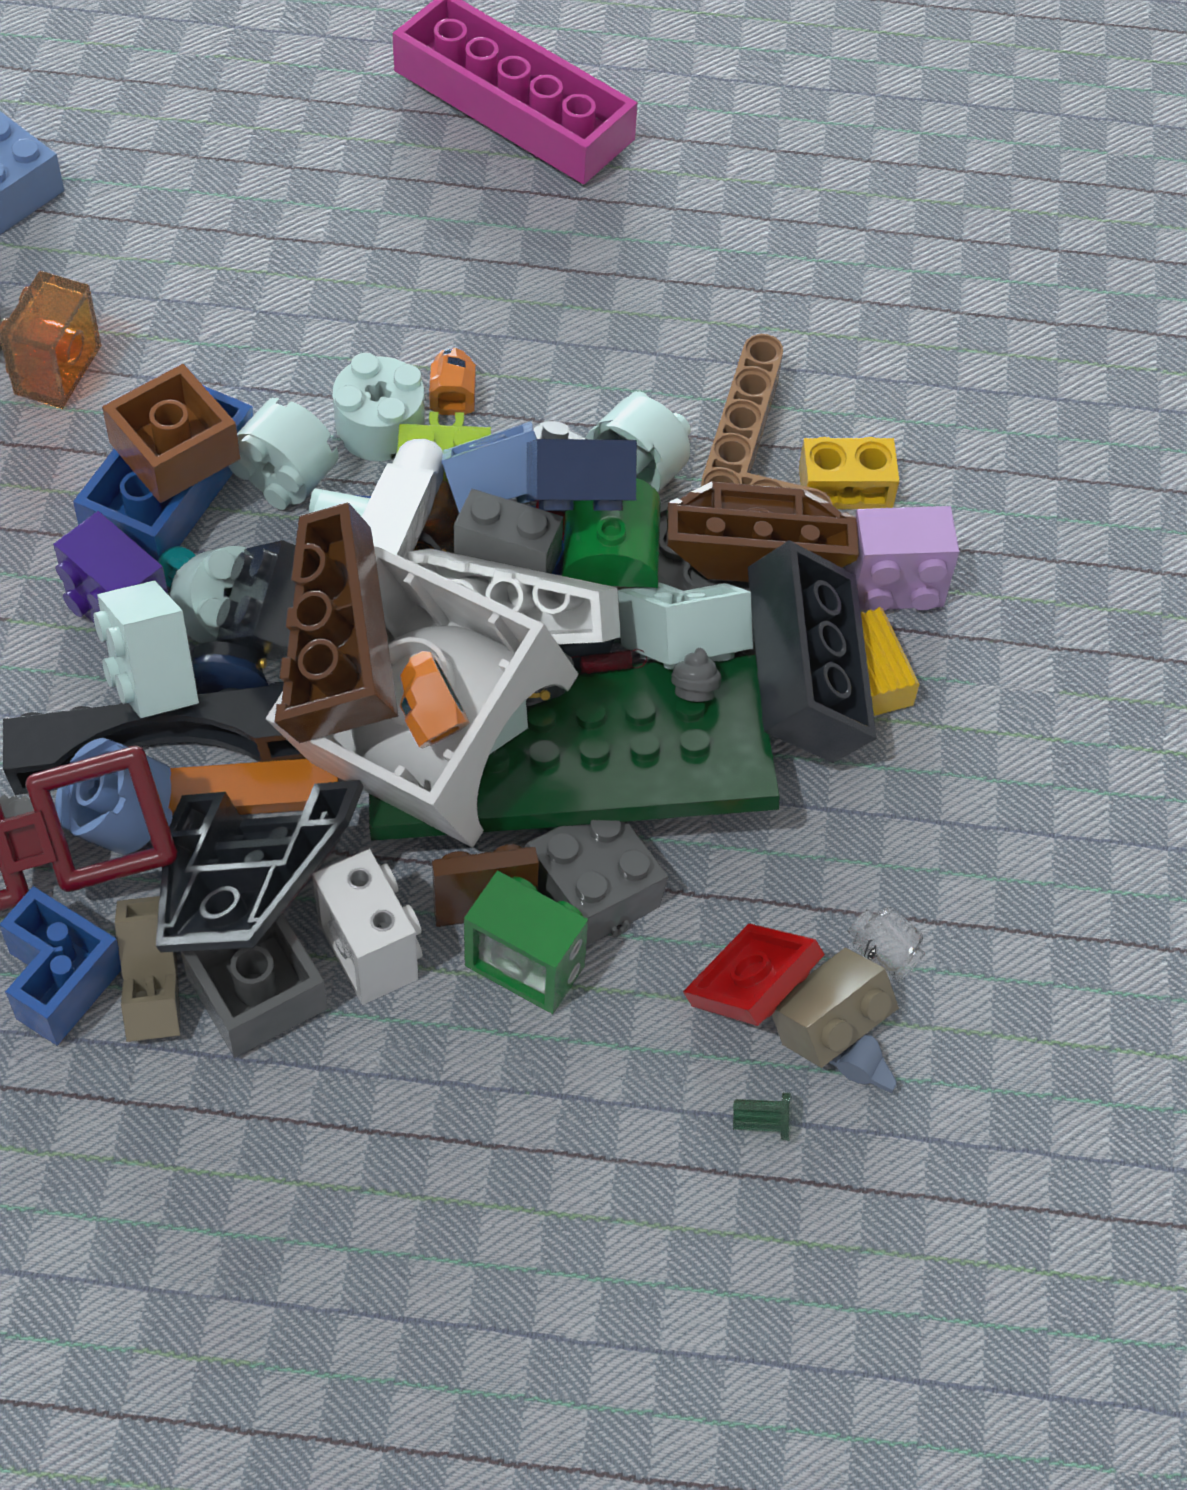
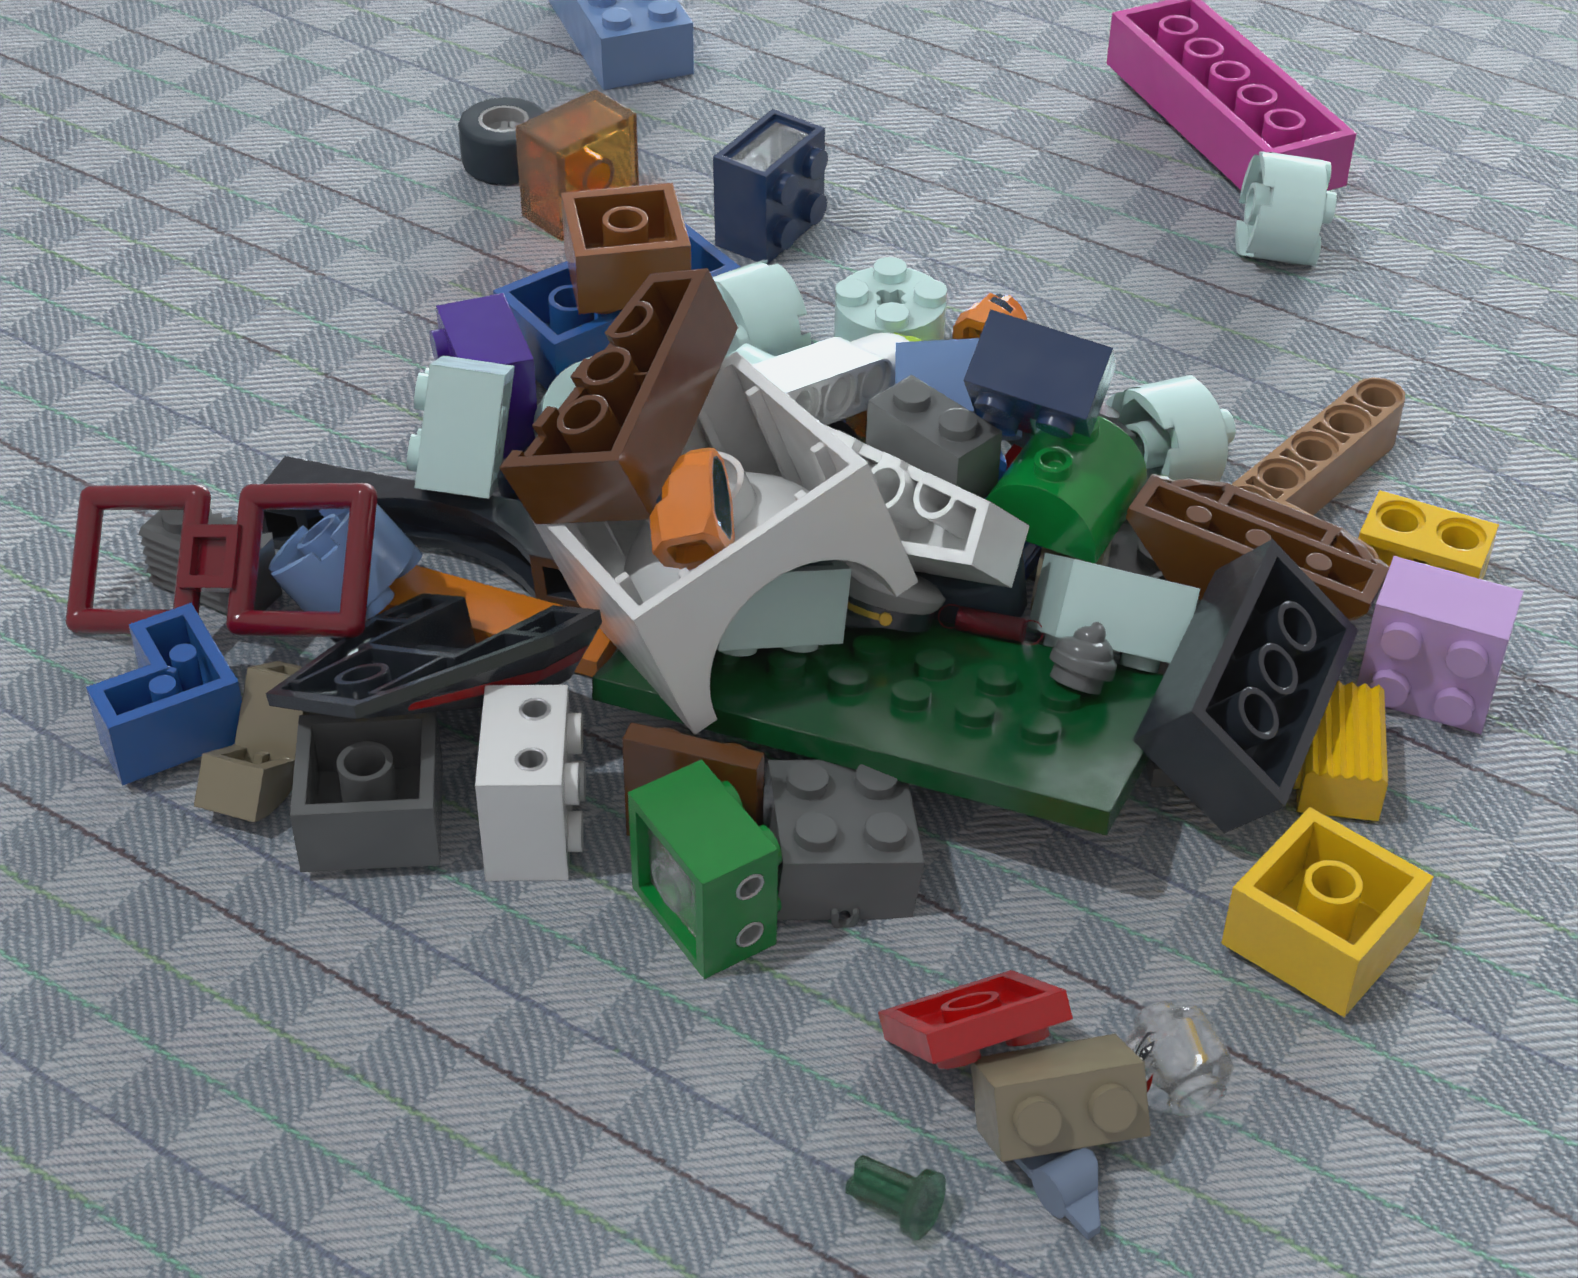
camera: 30 degrees right, 15 degrees down
(220, 308) = (769, 186): none -> dark blue piece
(613, 190) = (1284, 208): none -> light aqua brick
(926, 798) = (1326, 910): none -> yellow brick

